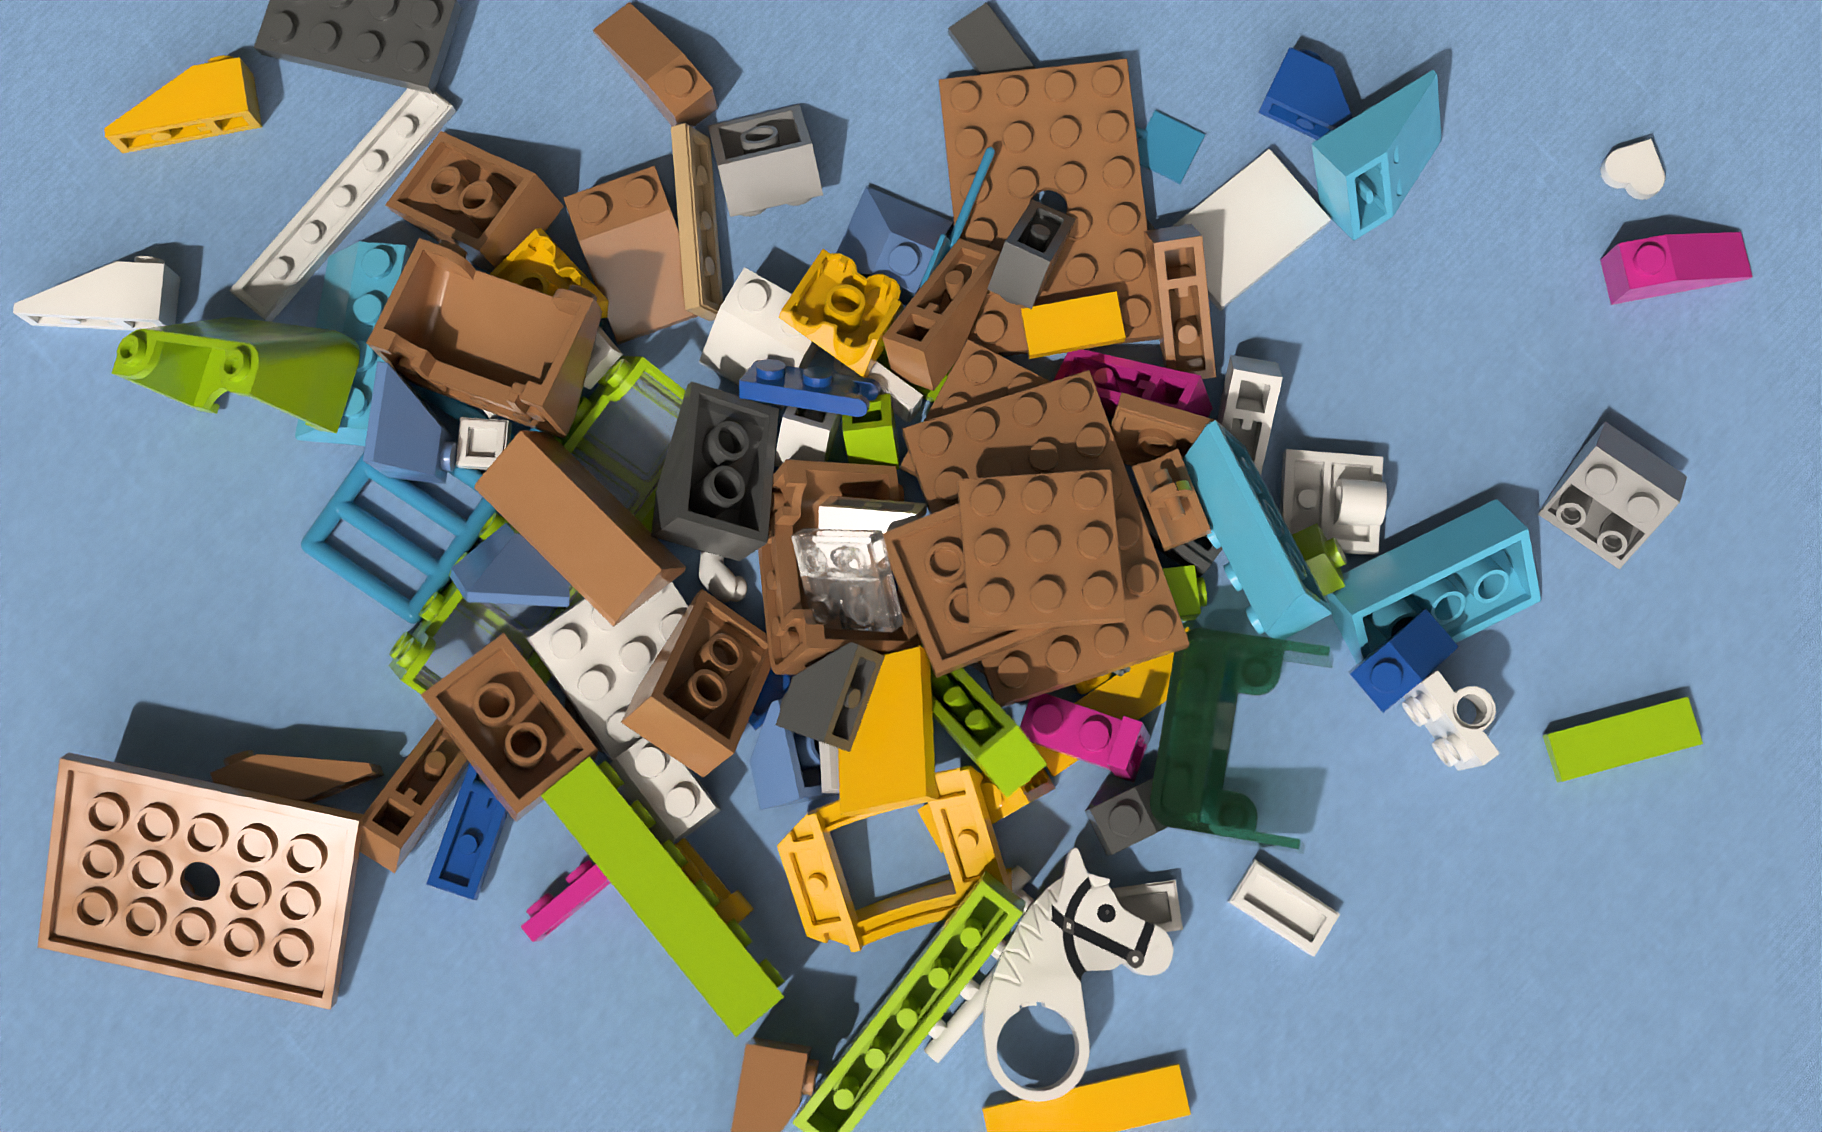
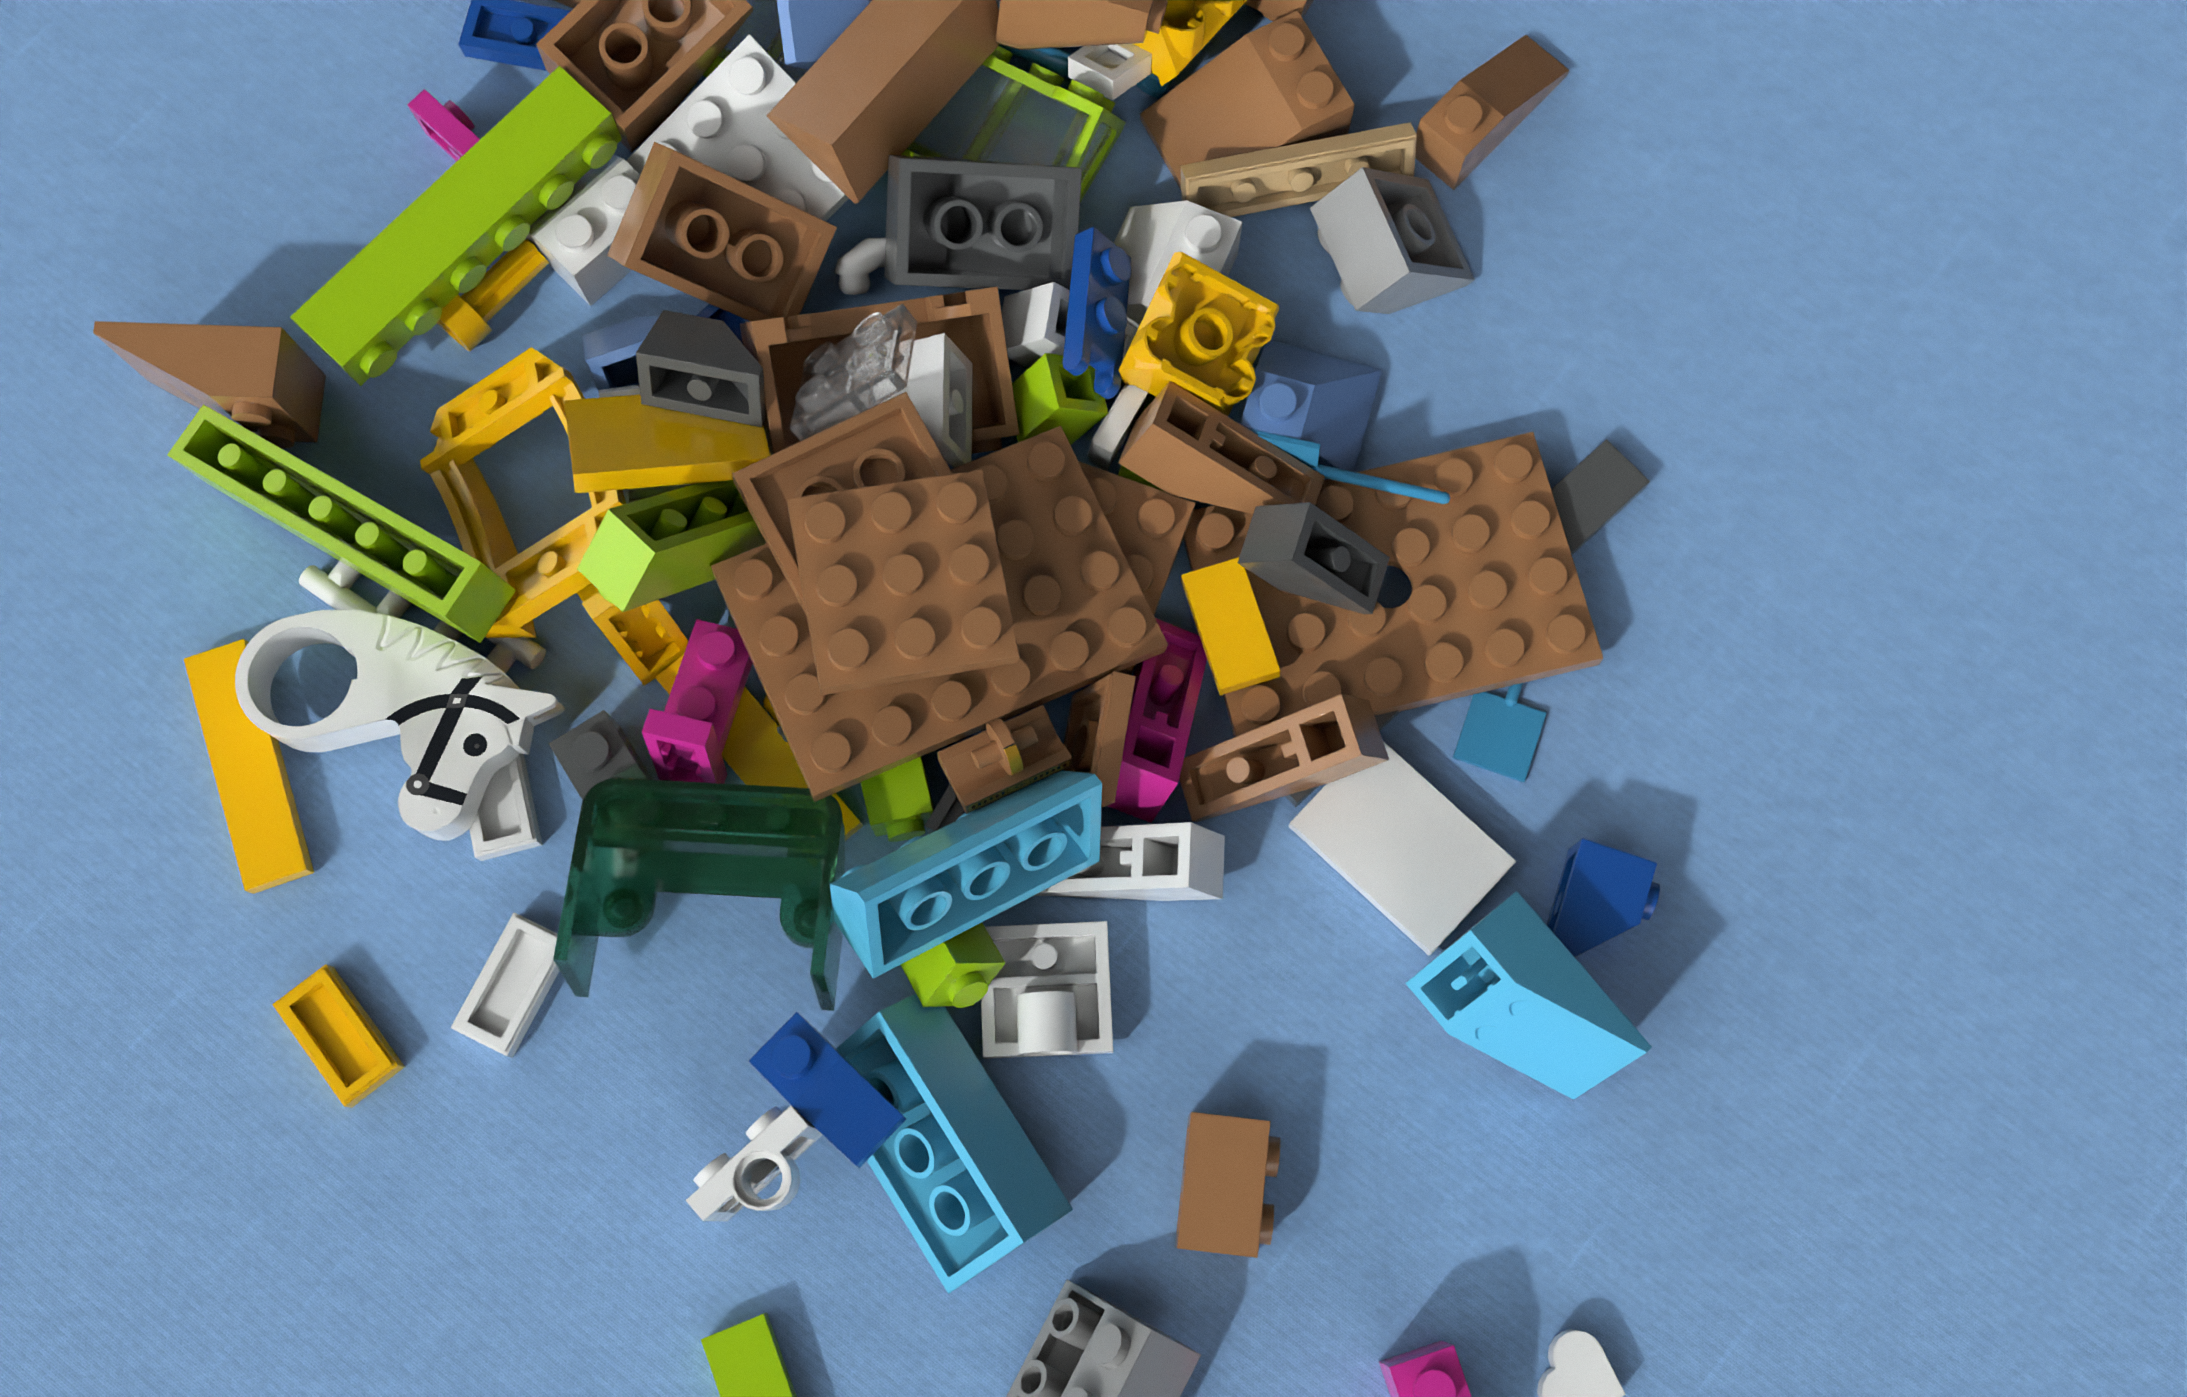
camera: 85 degrees right, 5 degrees down
(1309, 1047) = (338, 1036): none -> yellow tile
(1486, 390) = (1225, 1185): none -> medium nougat brick

